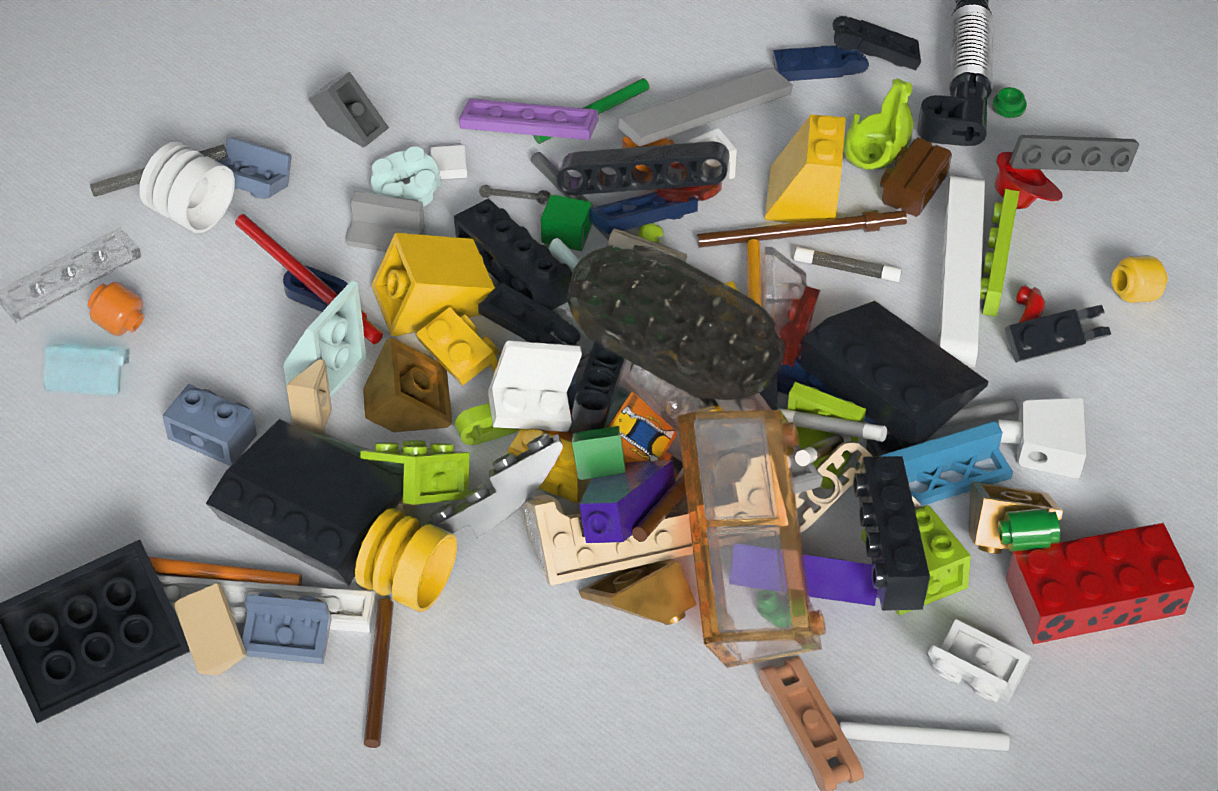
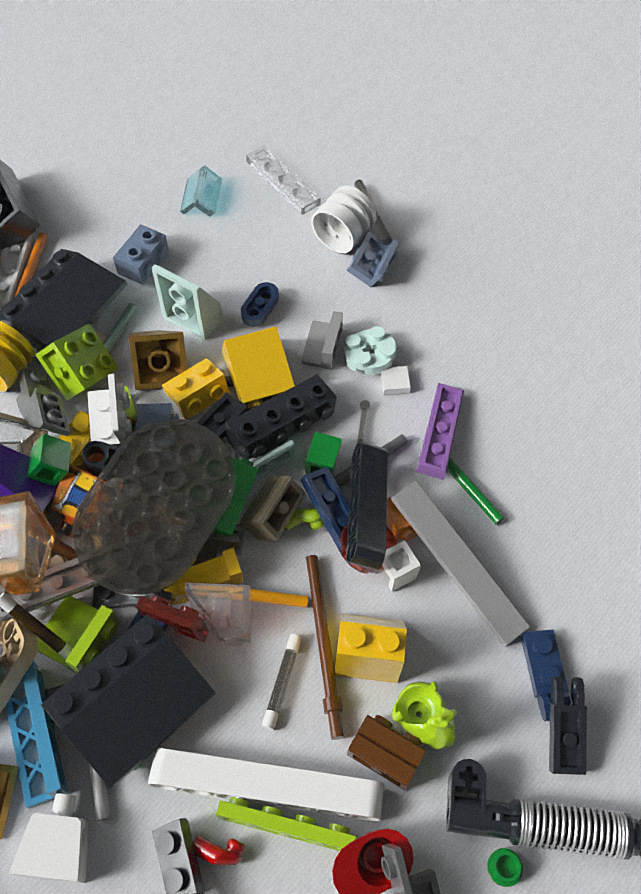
camera: 90 degrees right, 10 degrees up
(116, 308) = (244, 200): orange head -> none
(301, 272) = (224, 319): red bar -> none
(310, 398) = (143, 299): tan slope -> none
(348, 110) = (438, 311): dark grey slope -> none
(836, 425) = (58, 661): light grey bar -> none

